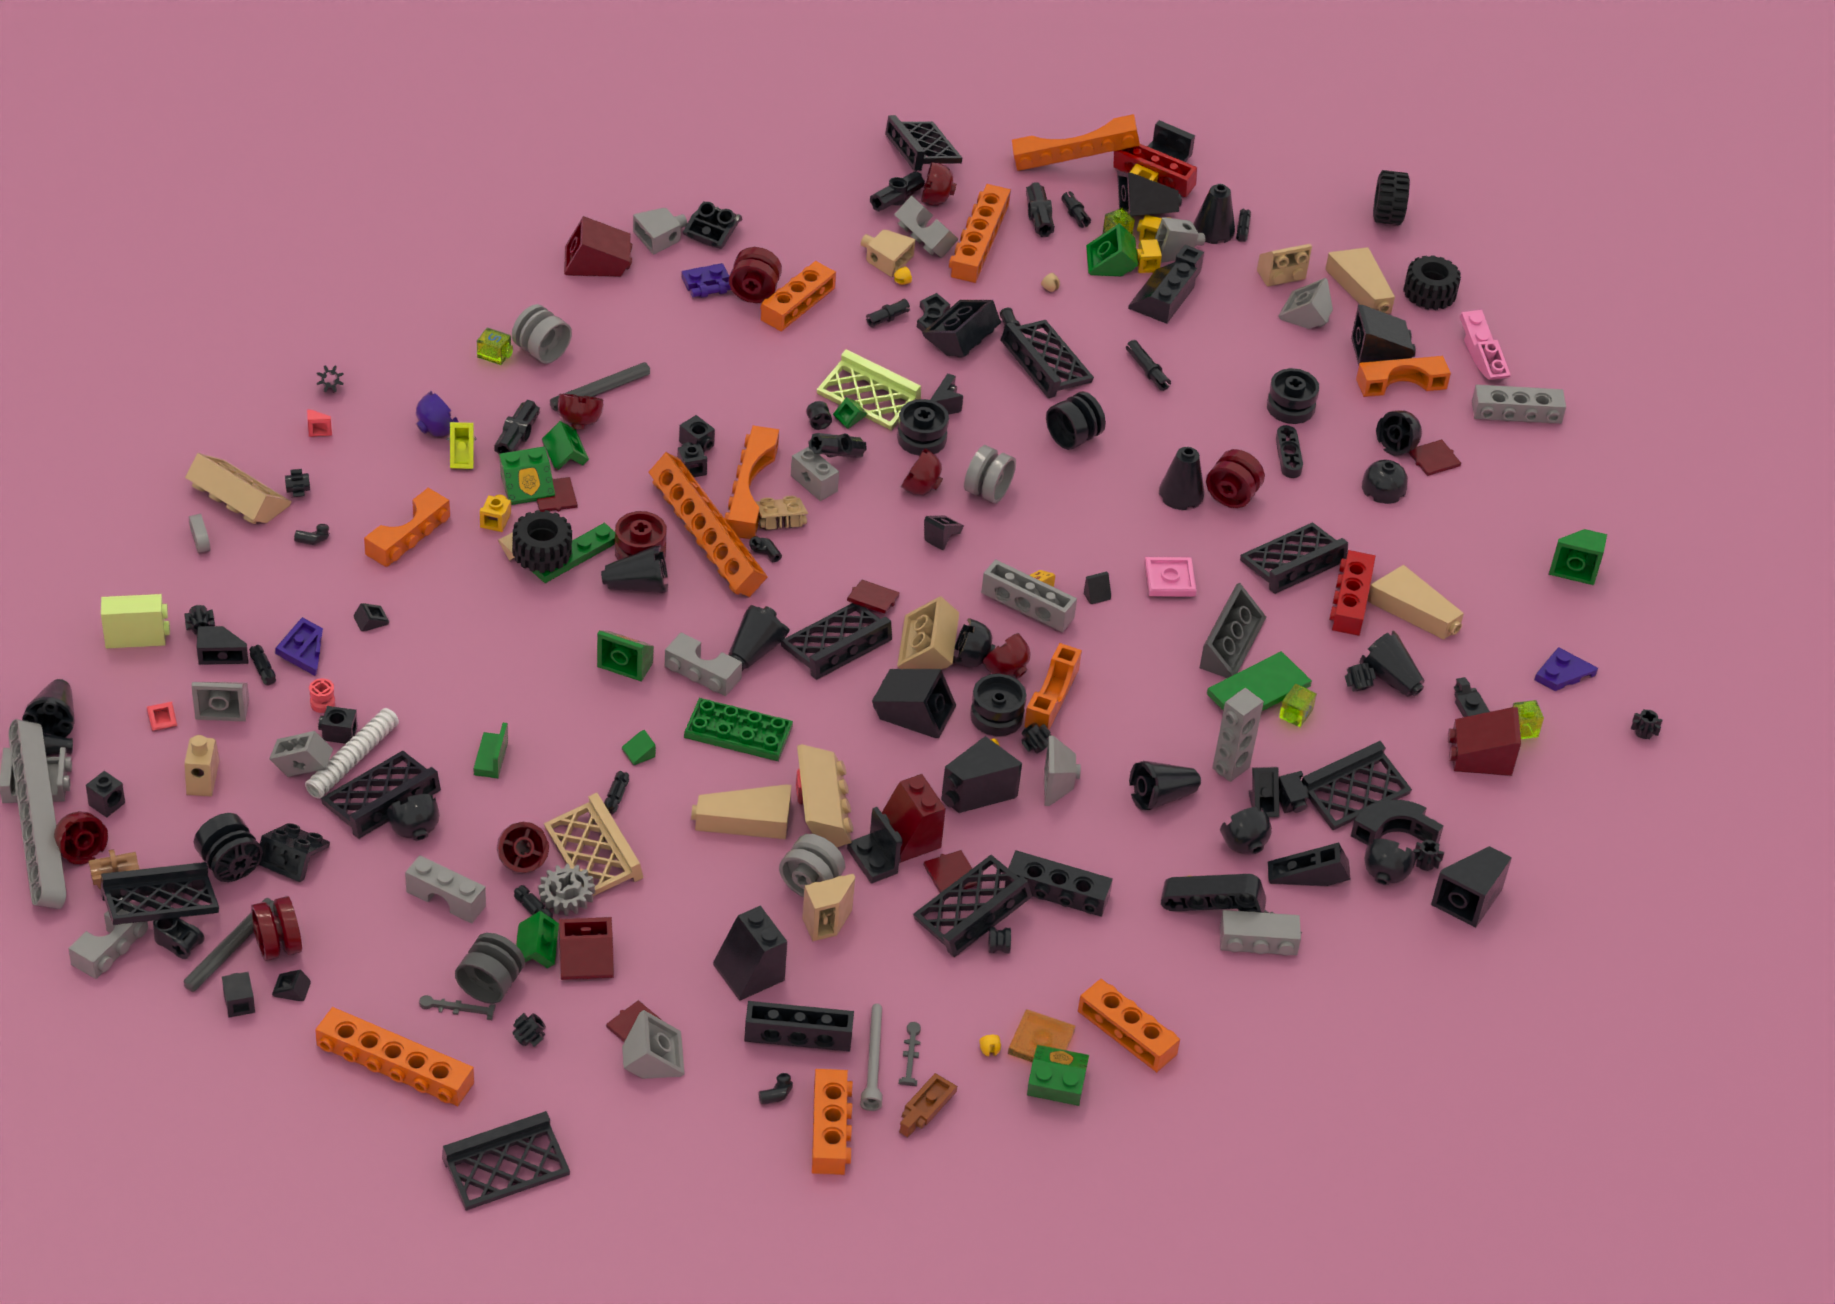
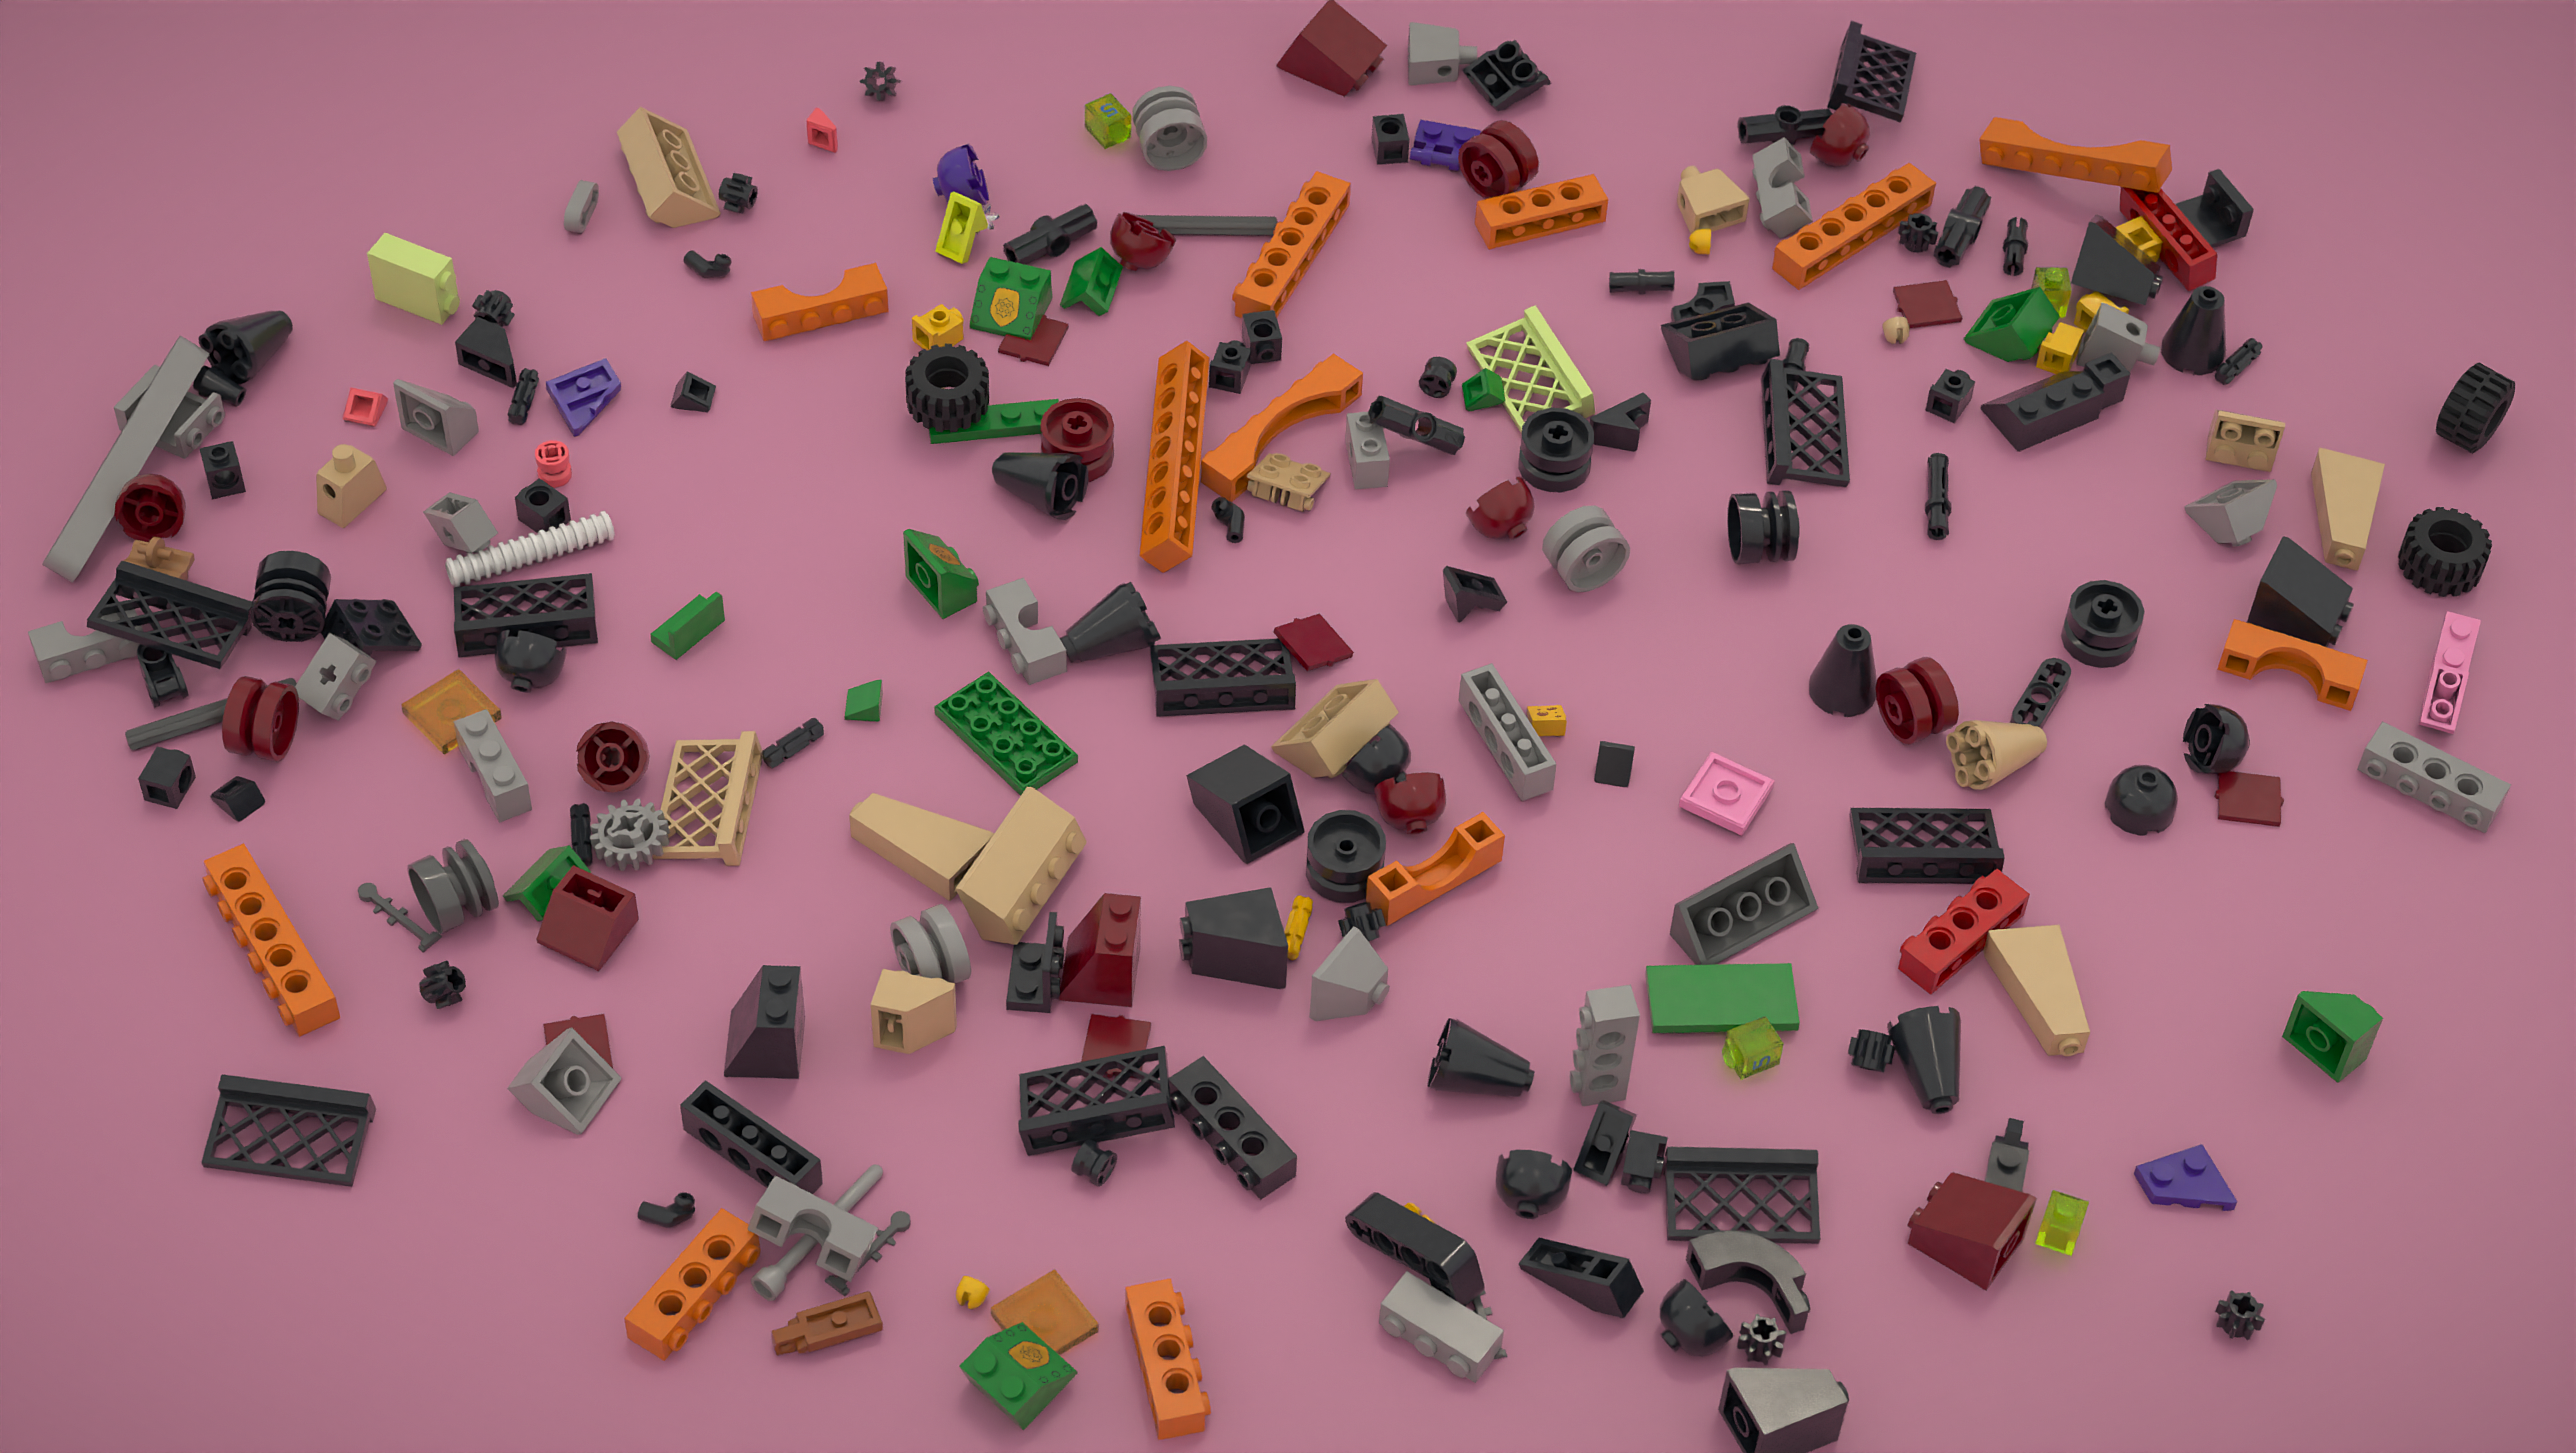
camera: 35 degrees right, 5 degrees up
(294, 870) = (334, 676): none -> light grey brick
(383, 872) = (442, 704): none -> clear yellow tile
(670, 374) = (1293, 245): none -> orange brick
(674, 289) = (1390, 139): none -> black brick
(899, 1050) = (791, 1210): none -> light grey arch
(1019, 222) = (1918, 233): none -> black gear
(1053, 261) = (1927, 304): none -> dark red piece
(1110, 300) = (1953, 387): none -> black brick
(1291, 490) = (1992, 750): none -> tan cone

